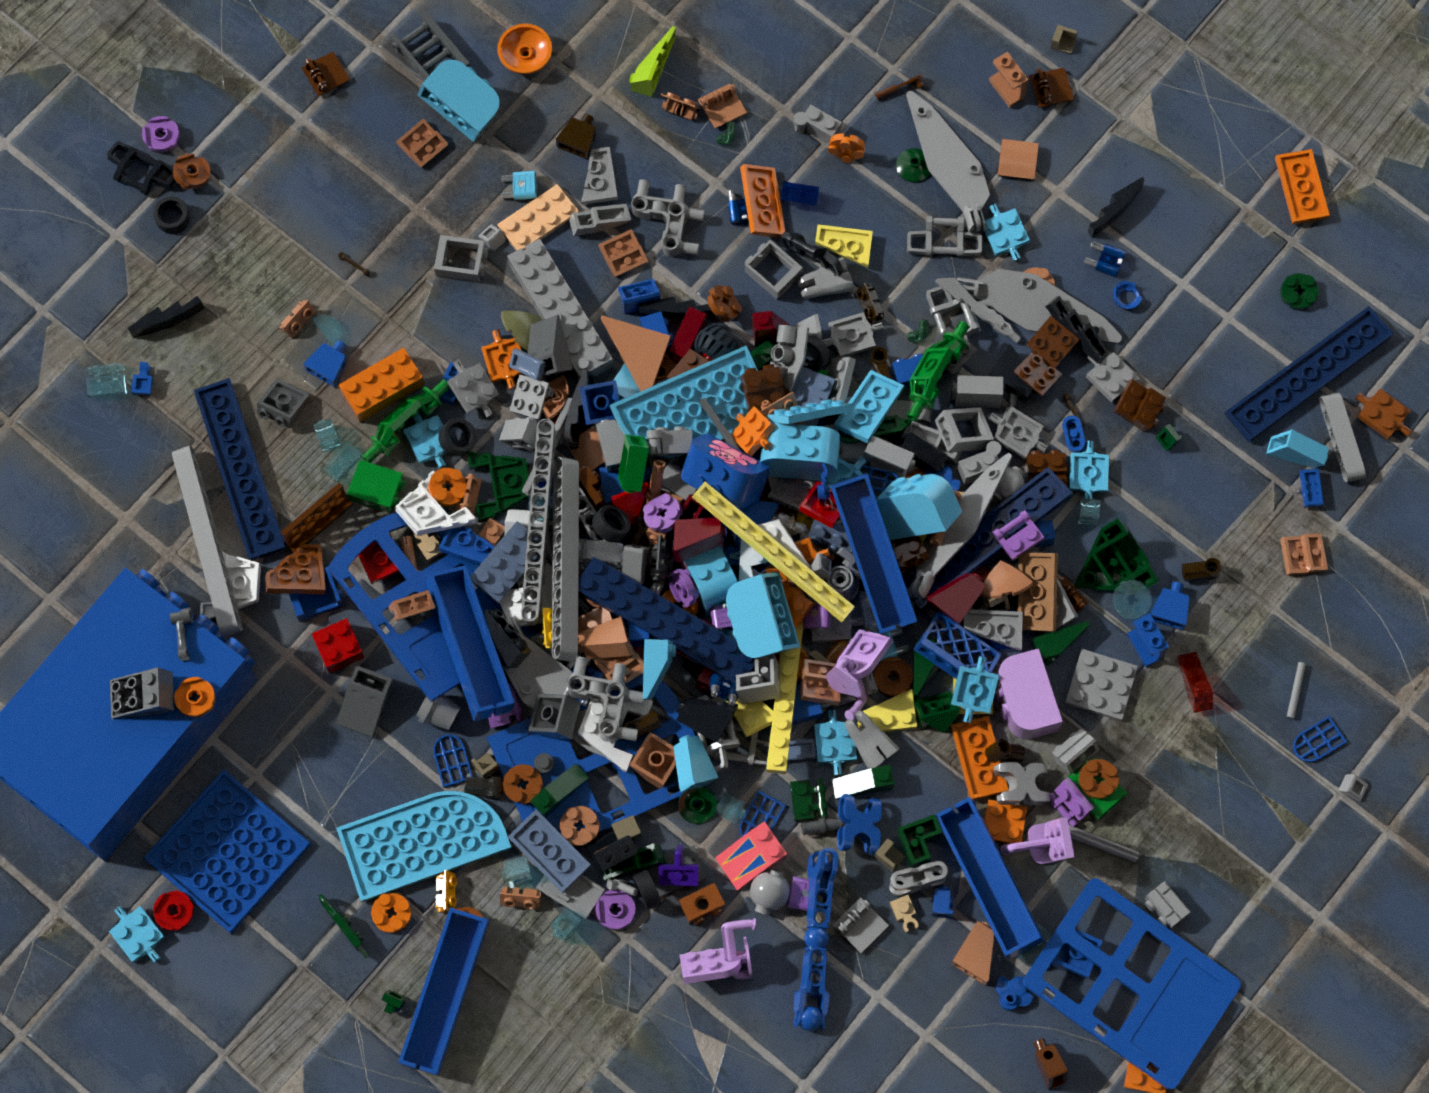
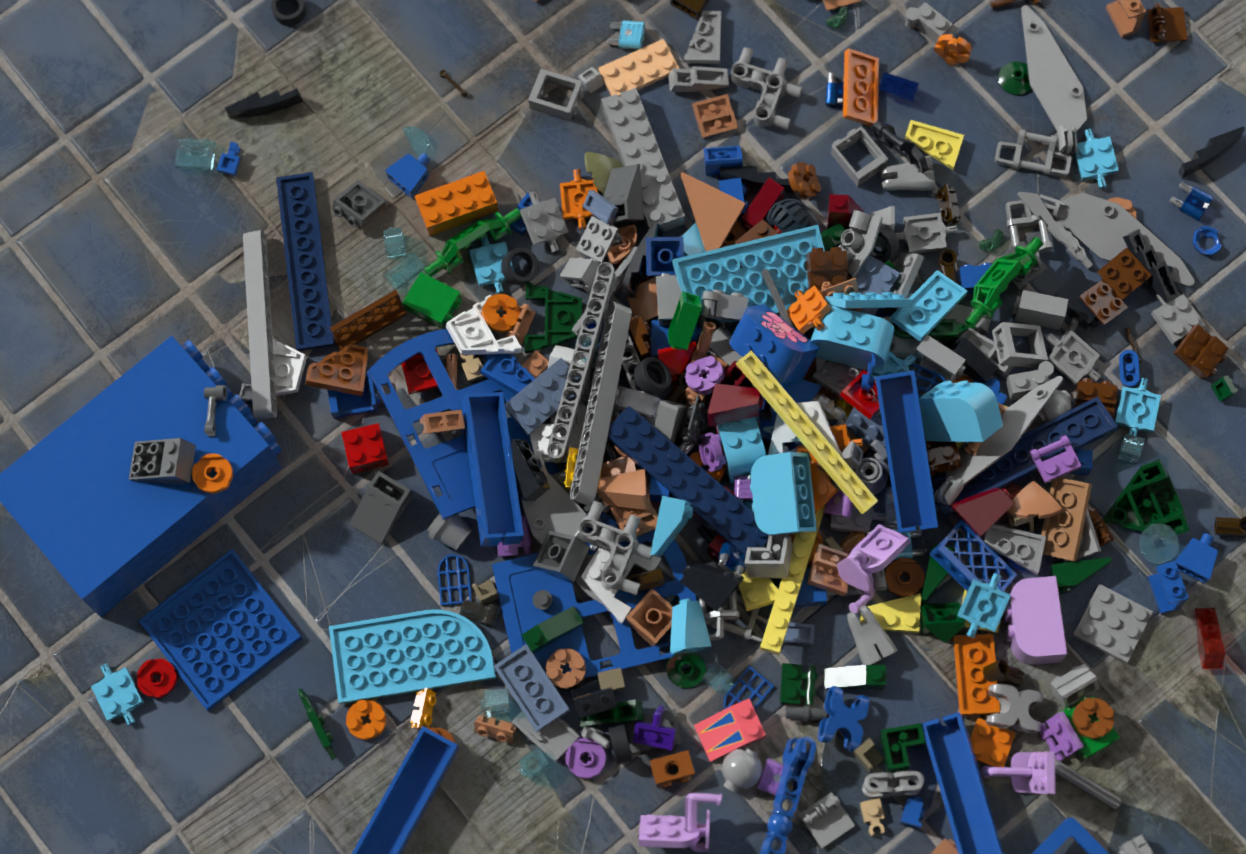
camera: 15 degrees right, 0 degrees up
(294, 323) = (392, 124): nougat hinge -> none
(393, 1001) = (351, 807): dark green tile -> none
(512, 779) = (510, 609): dark orange plate -> none
(834, 743) = (833, 633): medium azure plate -> none
(1018, 159) = (1121, 89): nougat slope -> none

